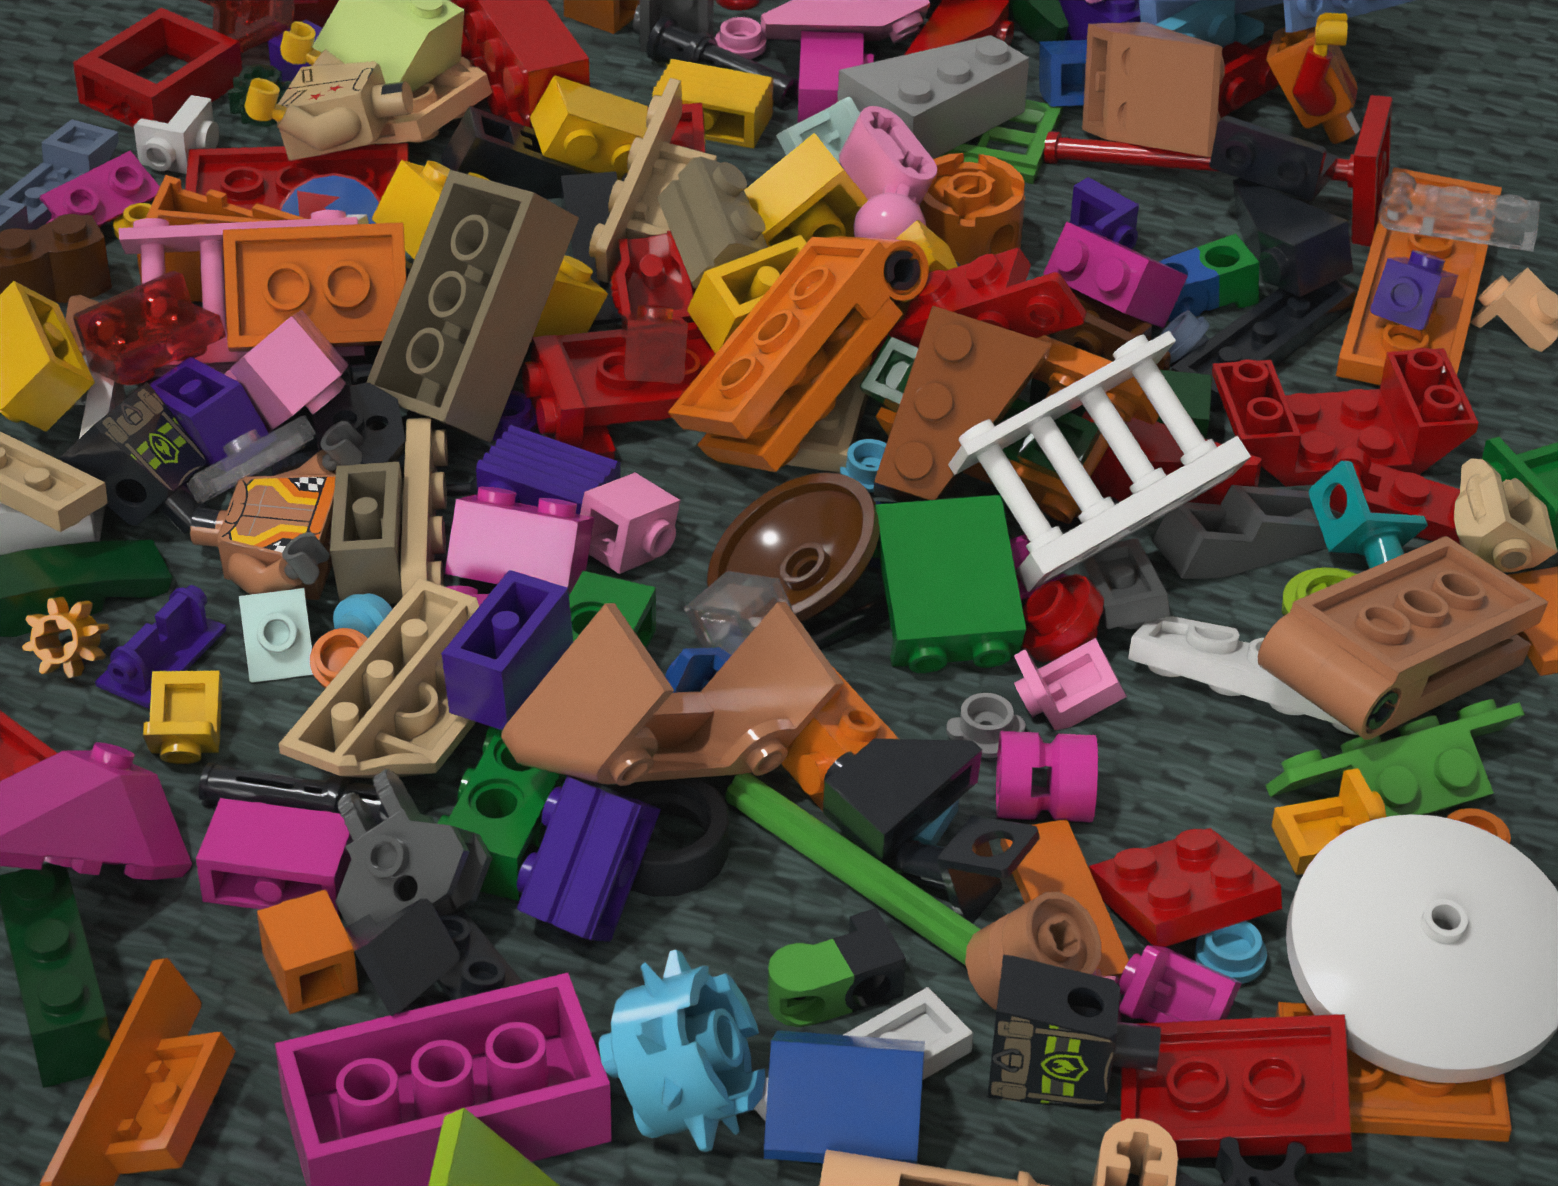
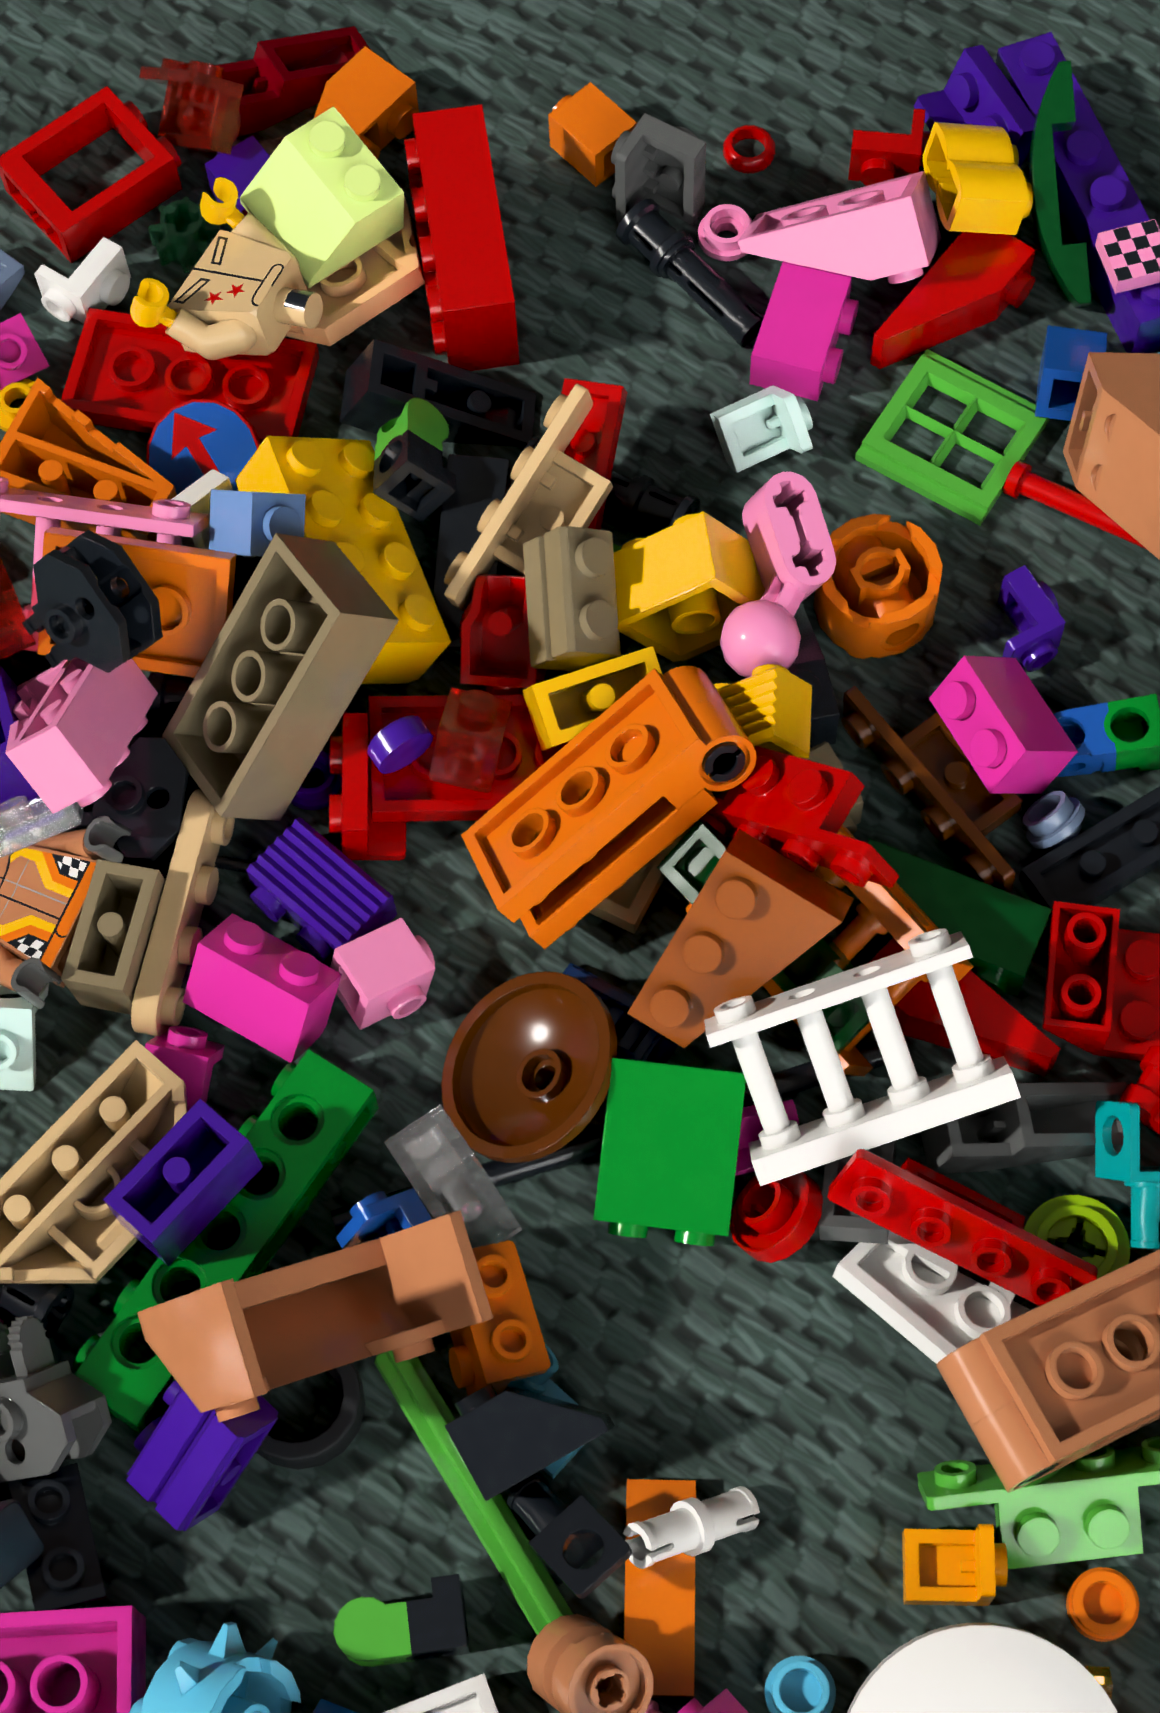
camera: 20 degrees right, 25 degrees up
(283, 268) = (91, 607): none -> black hinge
(333, 652) = (56, 1086): orange plate -> none
(361, 613) = (90, 1046): medium azure plate -> none
(408, 200) = (249, 519): none -> medium blue brick
(536, 173) = (411, 460): none -> black leg
(587, 126) = (506, 374): yellow brick -> none
(593, 348) = (399, 744): none -> dark purple tile
(733, 101) = (661, 339): yellow brick -> none
(864, 461) = (648, 923): medium azure plate -> none
(944, 91) = (898, 400): light grey wedge -> none
(982, 720) = (663, 1310): light grey plate -> none
(1069, 686) = (755, 1303): bright pink bracket -> none
(1070, 776) = (687, 1430): dark pink wheel -> none
(1082, 835) = (691, 1526): none -> white pin
(1185, 887) = (779, 1608): red plate -> none
(1210, 571) = (958, 1226): none -> red bracket

